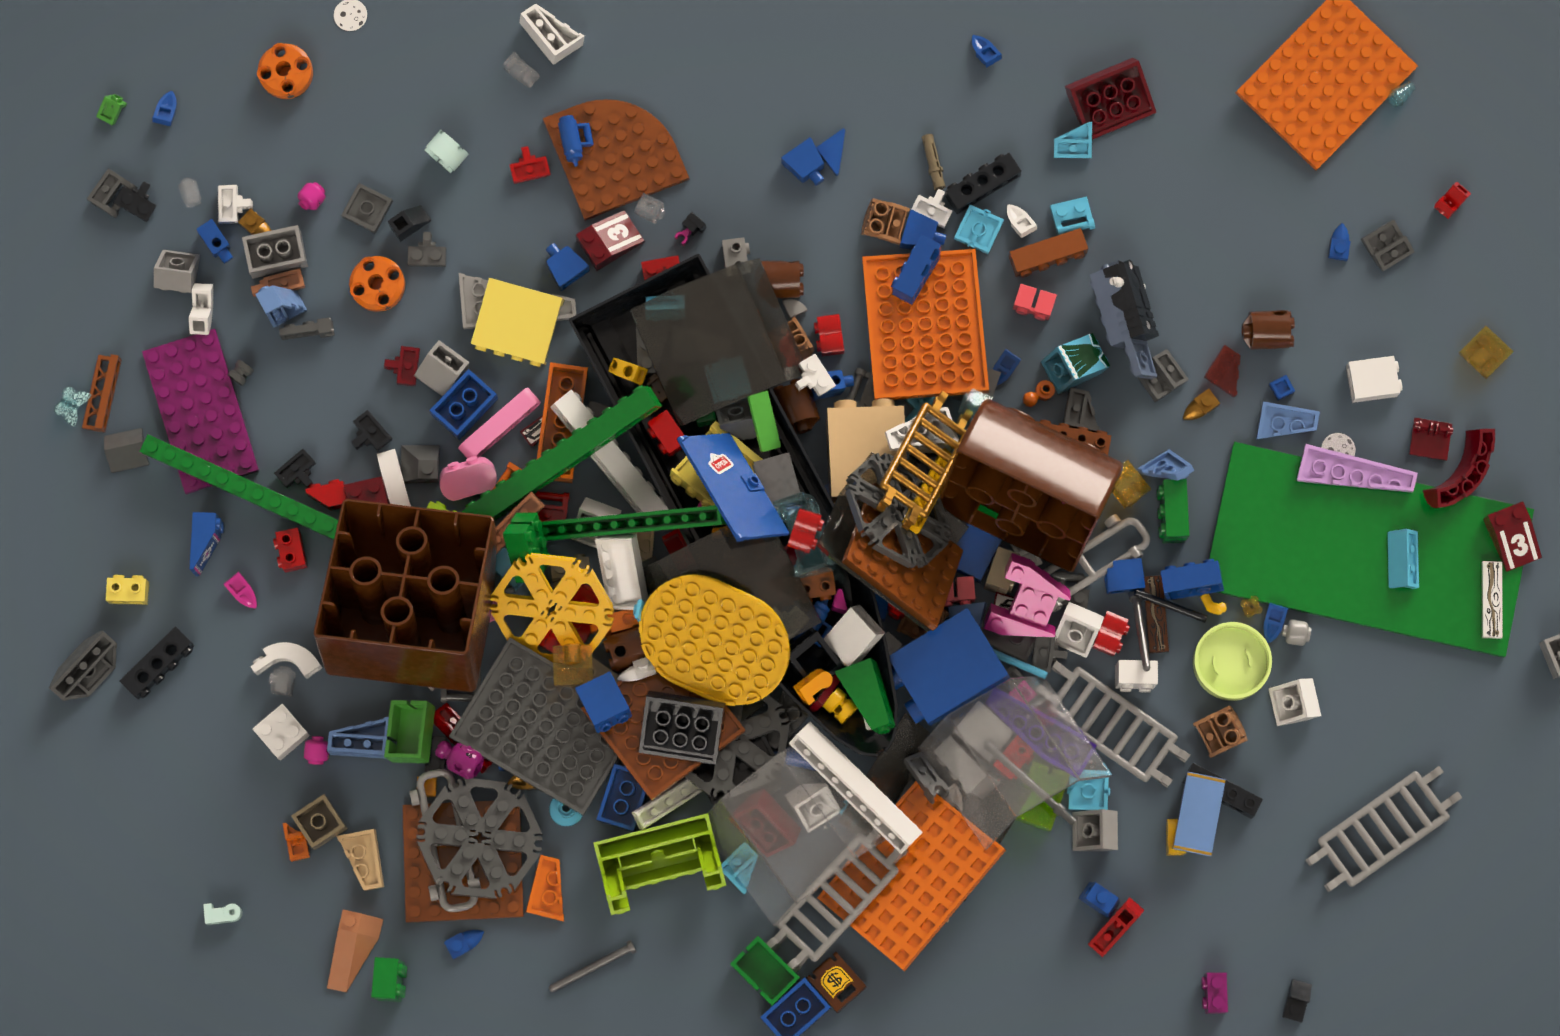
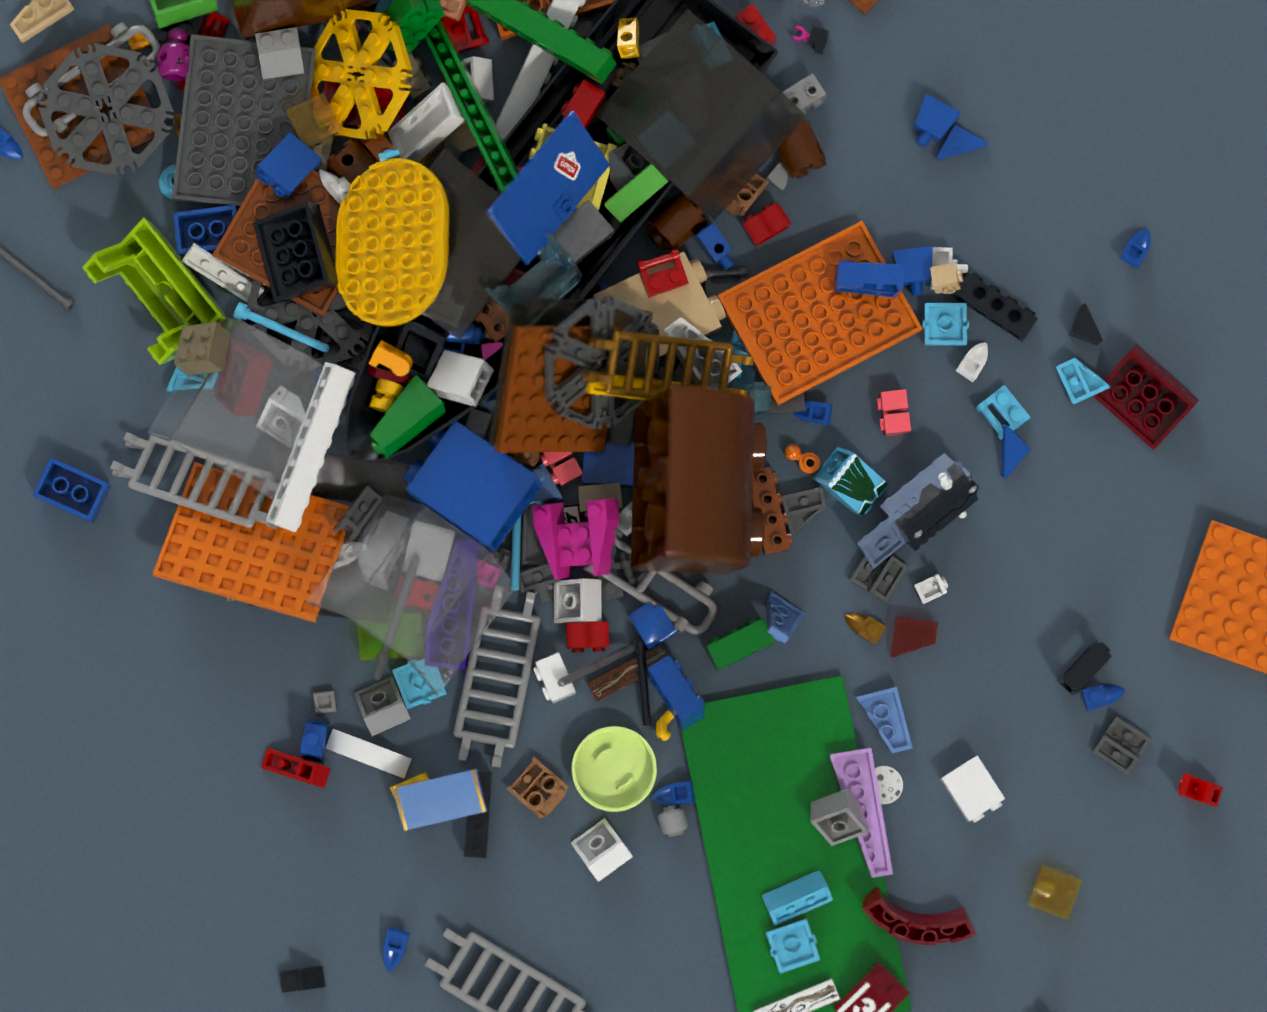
camera: 65 degrees right, 5 degrees up
(502, 668) = (279, 53): none -> light grey slope
(546, 893) = (87, 198): orange wing -> none
(712, 795) = (243, 312): none -> medium azure piece
(730, 841) = (202, 348): none -> dark tan brick
(765, 971) = (100, 442): green piece -> none
(804, 531) = (539, 280): red brick -> none
(814, 376) = (710, 224): white hinge -> none
(833, 979) = (123, 514): reddish brown container -> none
(845, 432) = (665, 279): none -> red plate
(888, 218) = (909, 227): medium nougat slope -> none
(935, 169) = (987, 253): dark tan pin -> none
(944, 209) = (946, 278): none -> tan brick
(1031, 120) = (1085, 327): none -> black slope
(1048, 252) = (953, 404): dark orange brick -> none
(1070, 878) = (324, 702): none -> light grey tile
(1108, 223) = (1012, 451): none -> blue tile
(1130, 486) = (748, 587): clear yellow plate -> none
(1130, 860) = (368, 753): none -> white slope
(1193, 337) = (931, 588): none -> white bracket
(1215, 993) = (267, 896): magenta brick -> none
(1249, 612) = (674, 765): clear yellow plate -> none
(1268, 329) = (973, 659): reddish brown cylinder -> none
(1282, 387) = (922, 700): blue tile -> none
(1303, 910) = (394, 947): none -> blue plate
(1314, 244) = (1085, 667): none -> black window
(1353, 494) = (838, 817): none -> light grey slope
(1430, 439) = (937, 874): dark red hinge -> none
(1442, 580) = (792, 946): none -> medium azure plate

